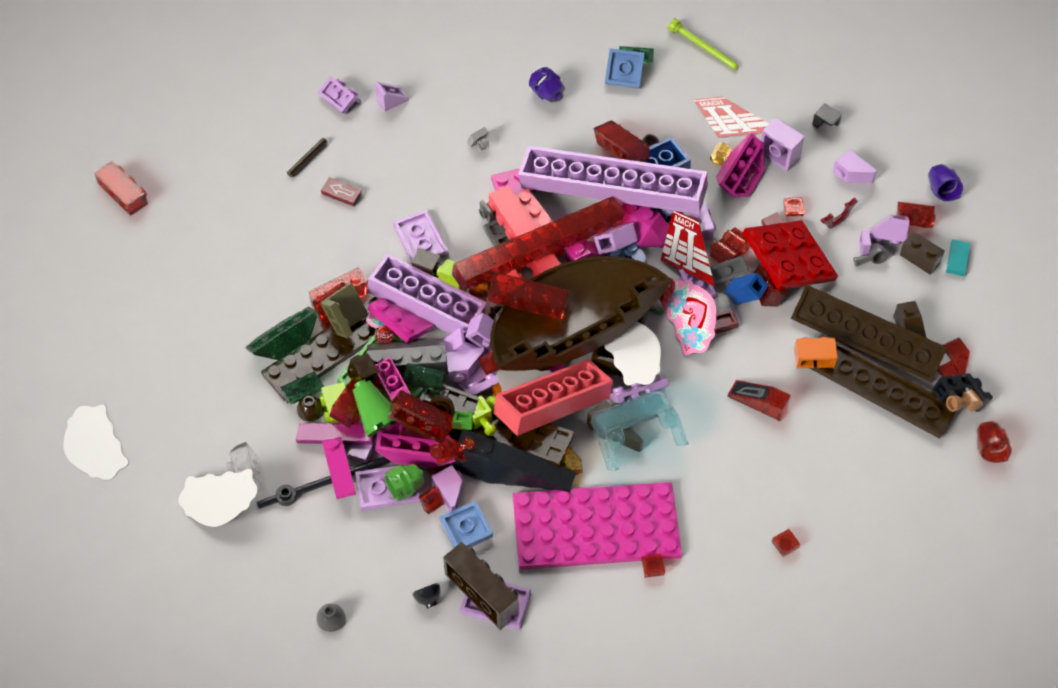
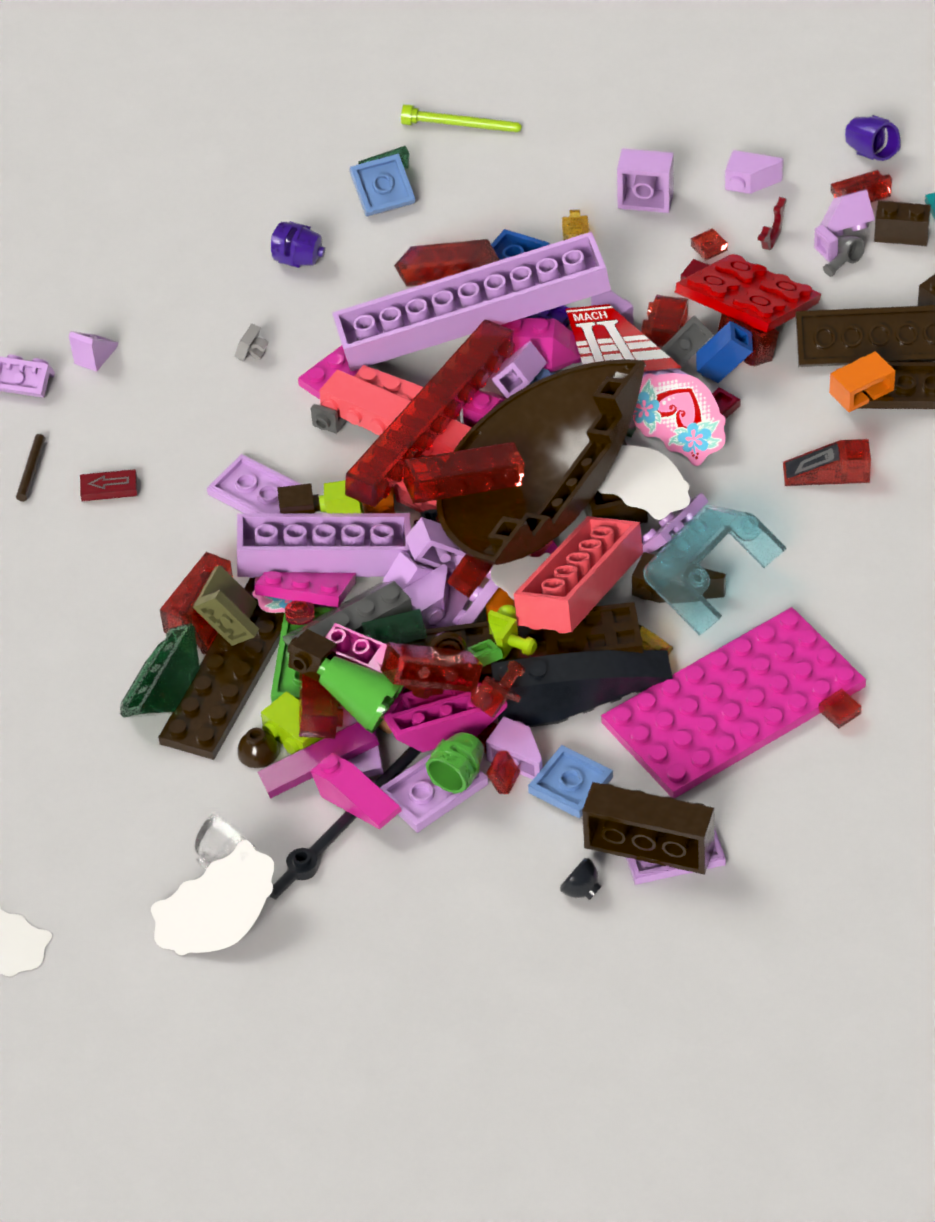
camera: 25 degrees left, 10 degrees down
(302, 387) = (232, 727): clear green plate -> none
(330, 617) = (471, 972): dark grey brick -> none
(495, 232) = (353, 439): dark grey slope -> none
(728, 118) = (554, 187): sticker -> none
(742, 167) = (615, 225): dark pink wedge -> none
(827, 115) = (676, 127): panel -> none

